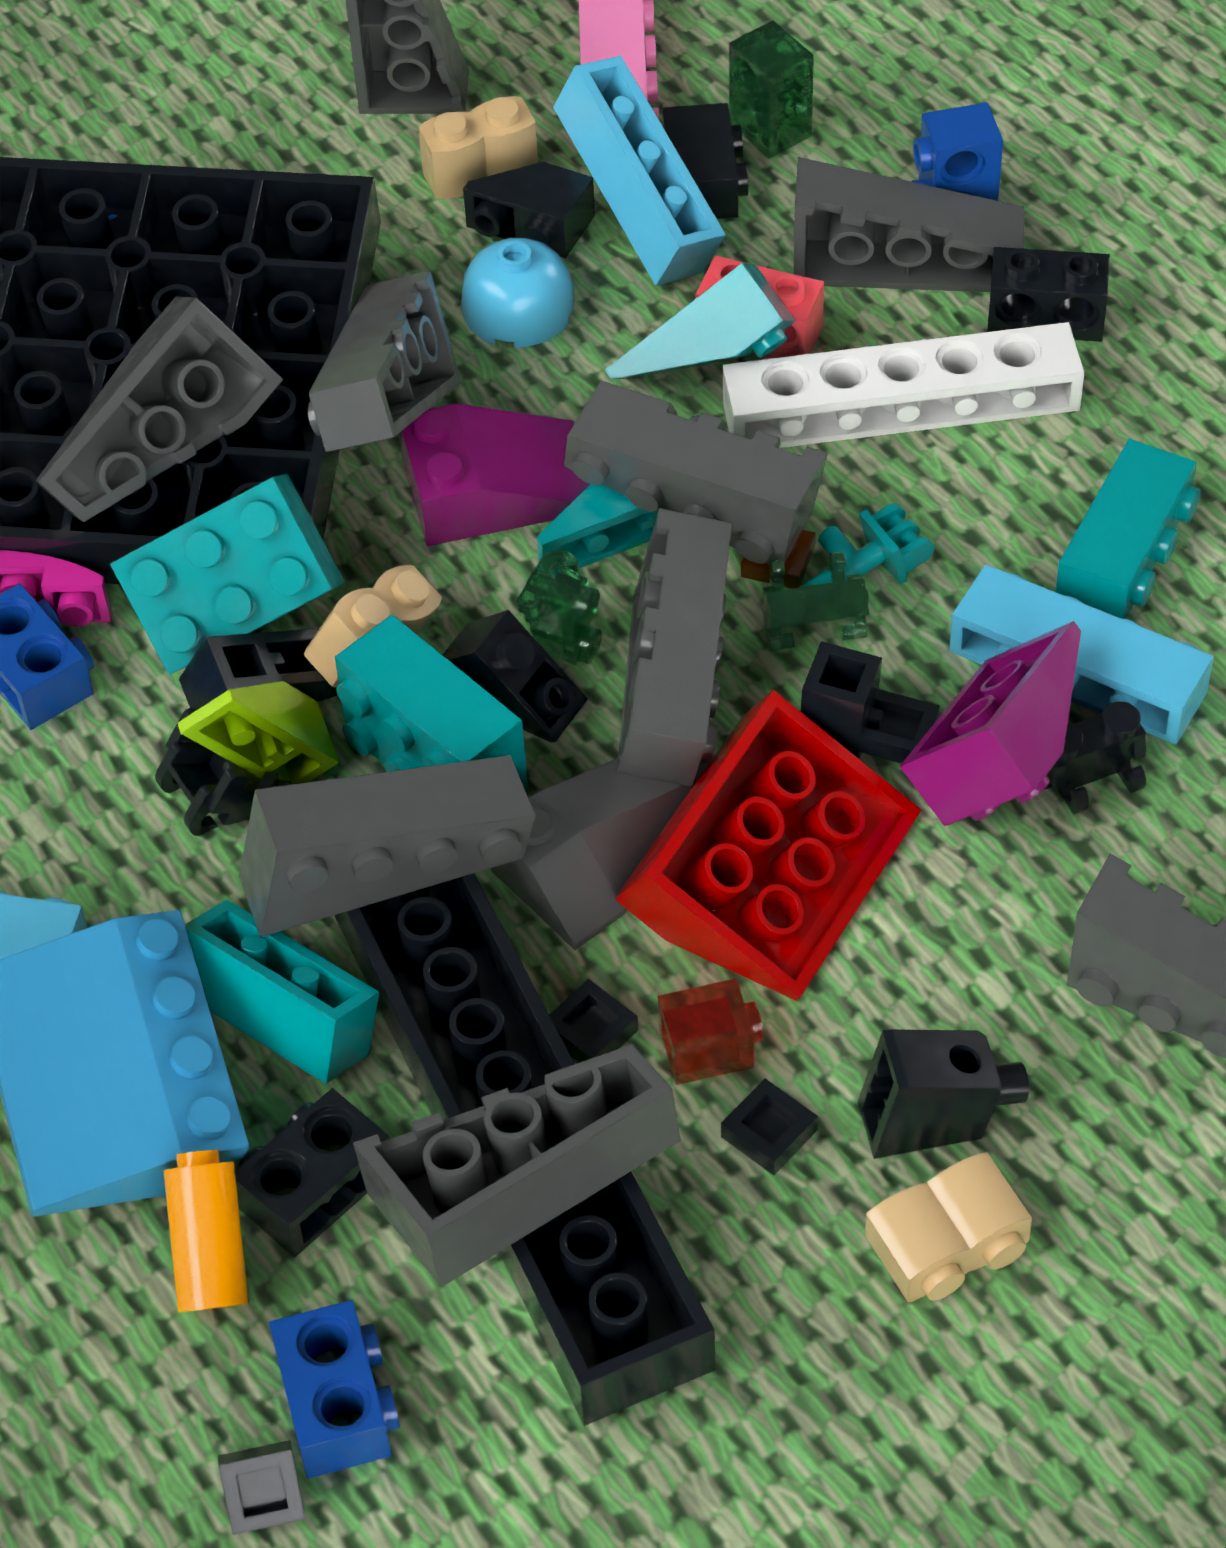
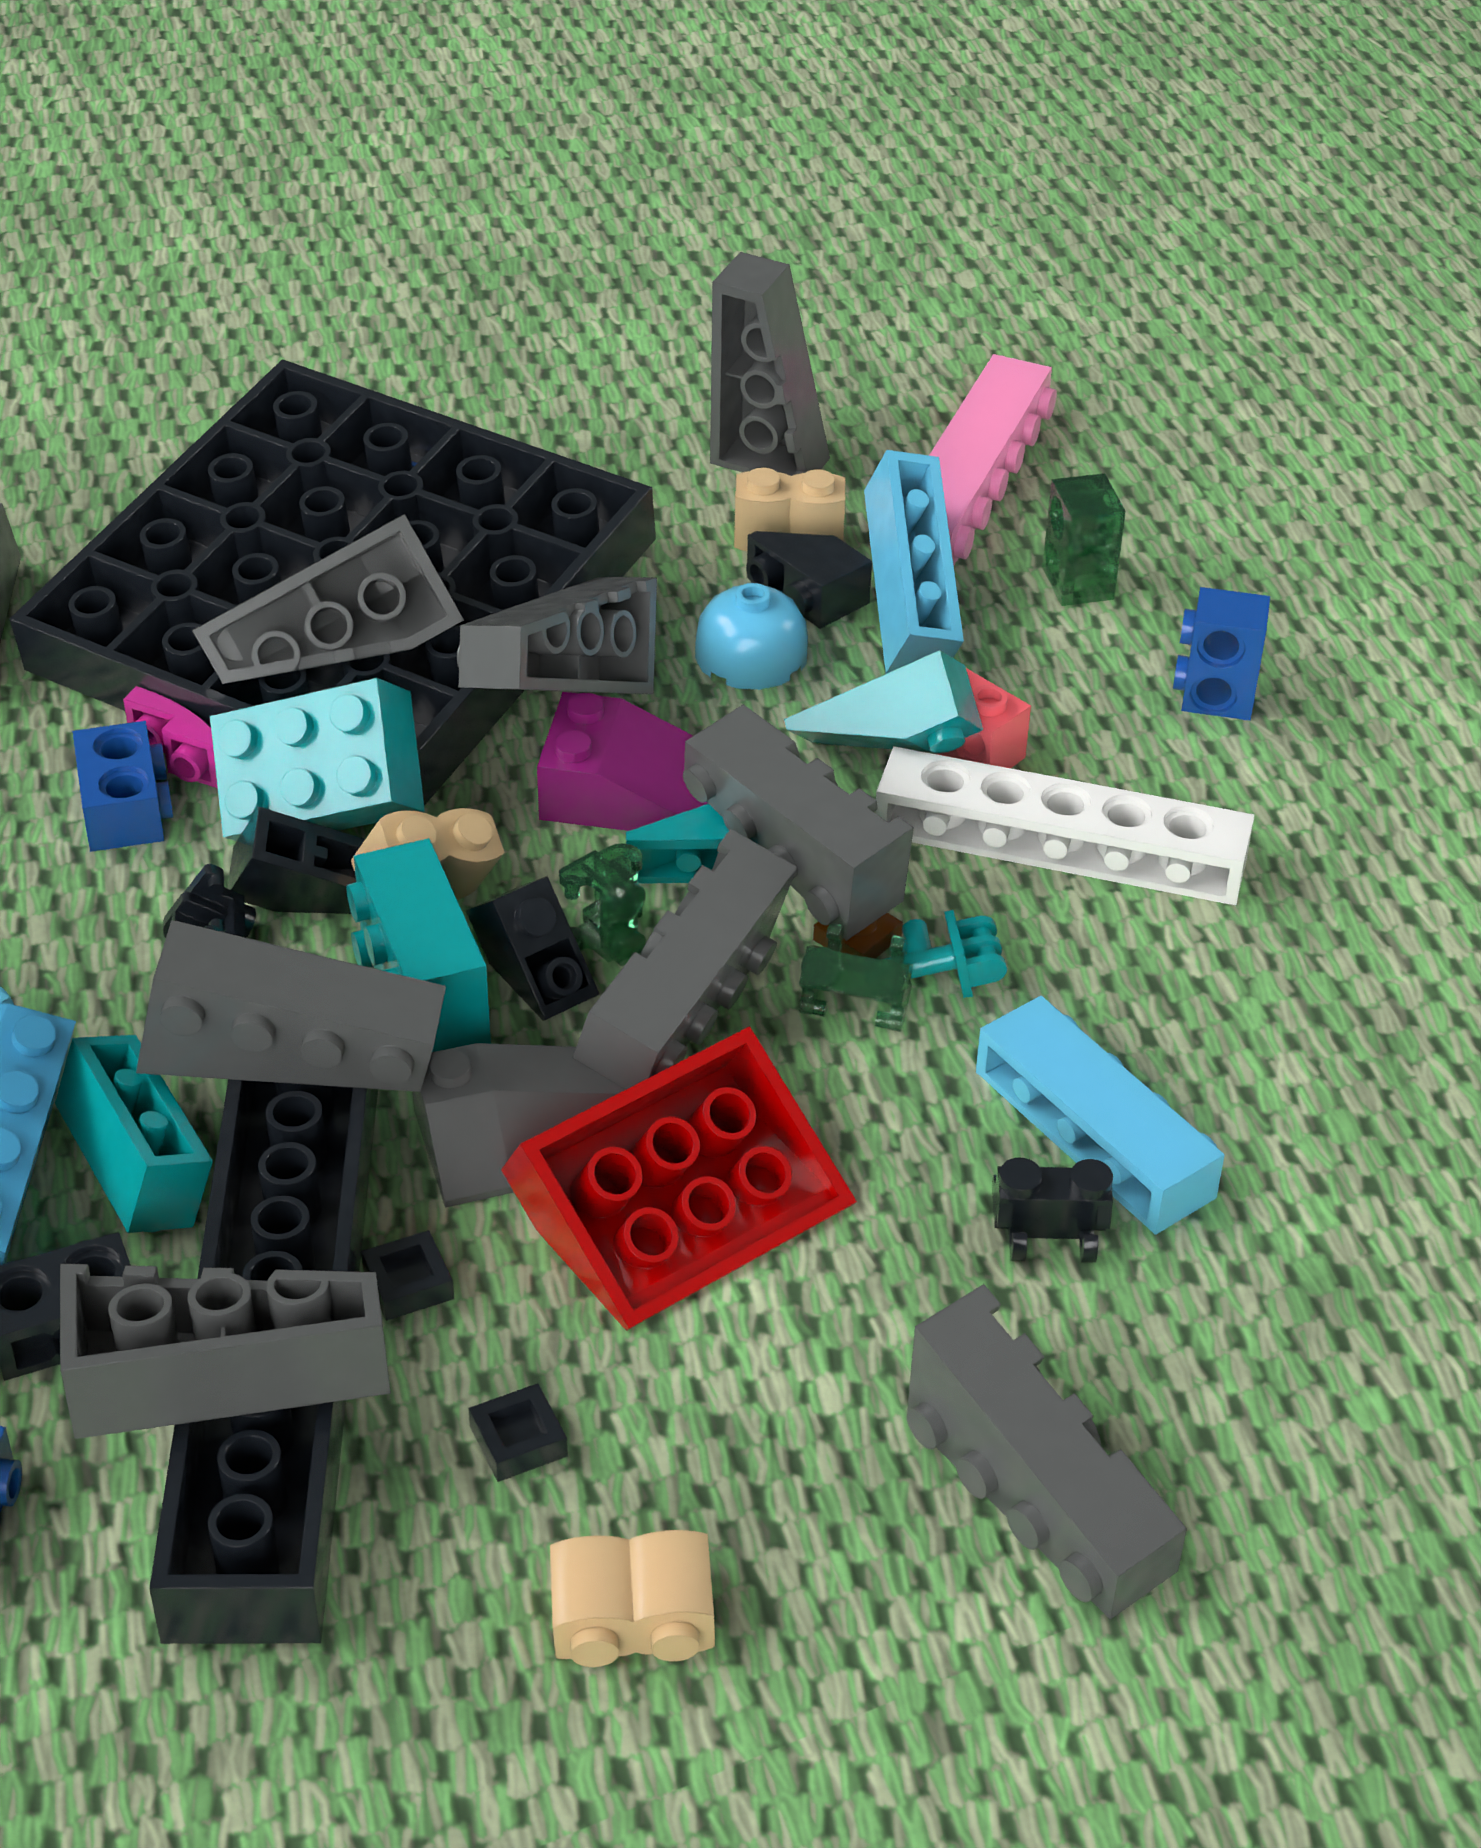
camera: 20 degrees right, 10 degrees down
(265, 730) = (257, 894): lime slope -> none
(708, 1031) = (512, 1320): clear red brick -> none
(710, 152) = (993, 581): black brick -> none
(850, 707) = (828, 1073): black brick -> none
(896, 232) = (1137, 694): dark grey wedge -> none
(934, 1089) = (696, 1455): black torso -> none
(999, 730) = (954, 1153): magenta slope -> none
(1048, 289) = (1261, 781): black brick -> none
(1129, 529) = (1212, 1018): teal brick -> none

